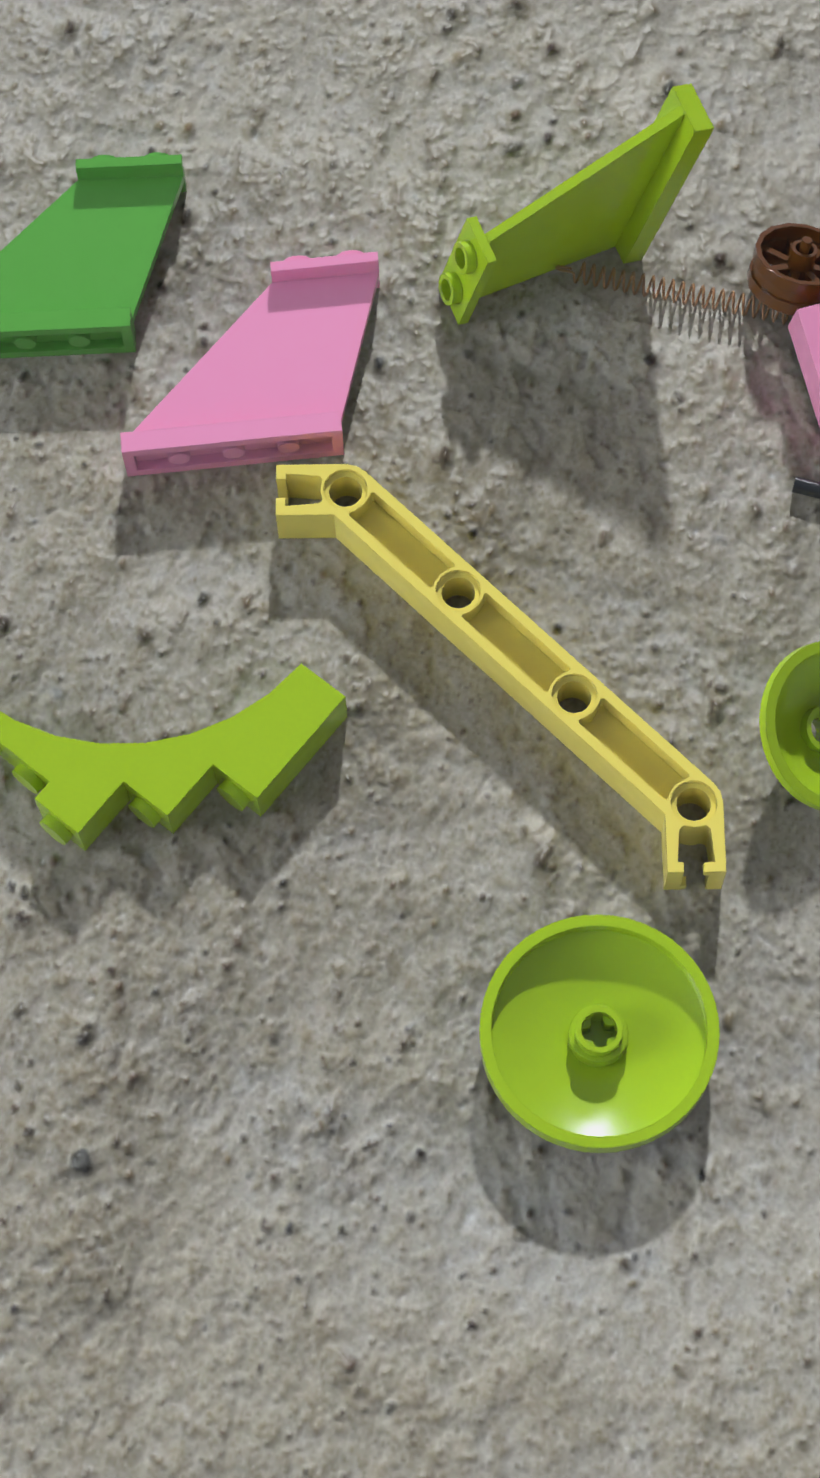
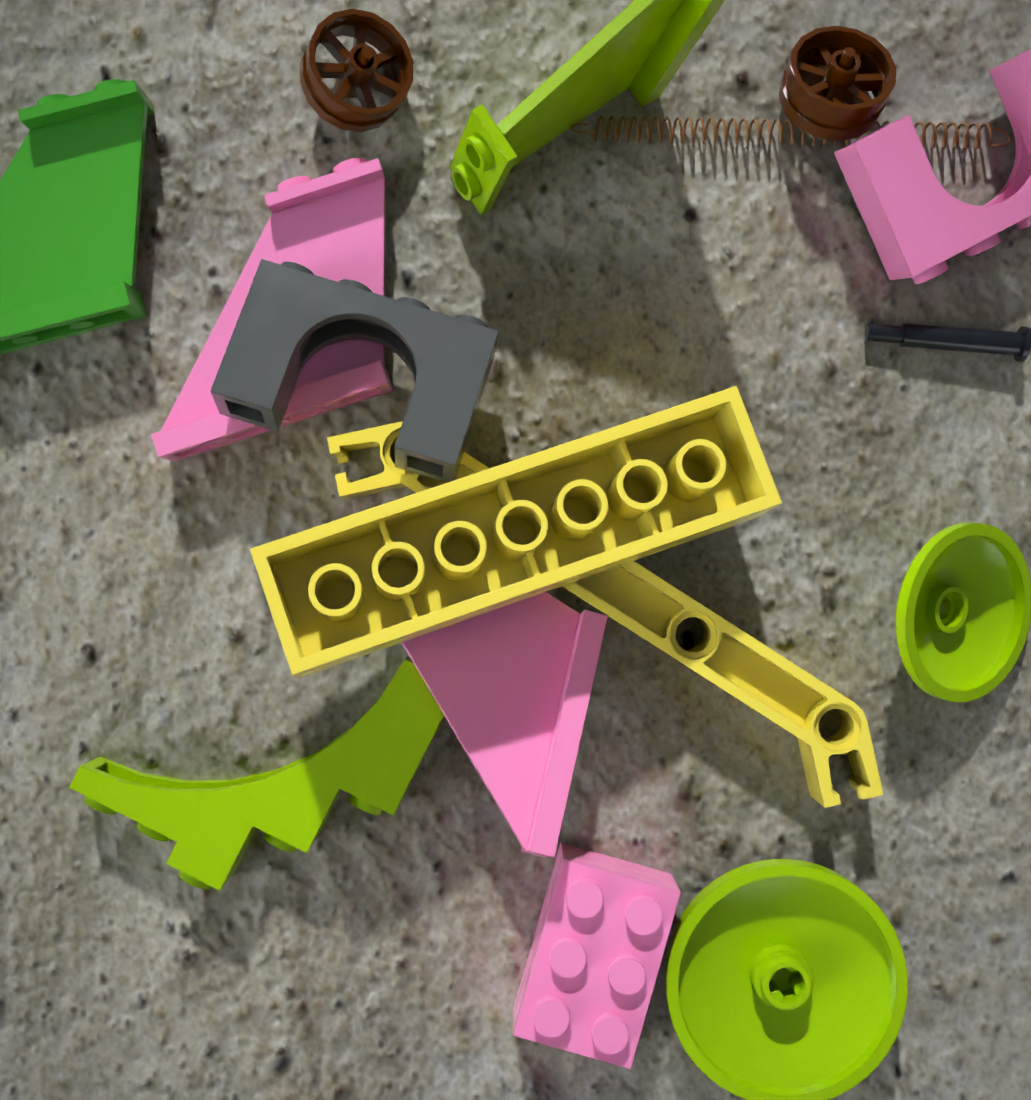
camera: 15 degrees left, 20 degrees up
(282, 358) = (298, 313): none -> dark grey arch
(386, 686) = (518, 703): none -> bright pink piece
(393, 168) = (356, 70): none -> reddish brown wheel
(419, 973) = (595, 955): none -> bright pink brick
(428, 554) = (513, 531): none -> light yellow brick

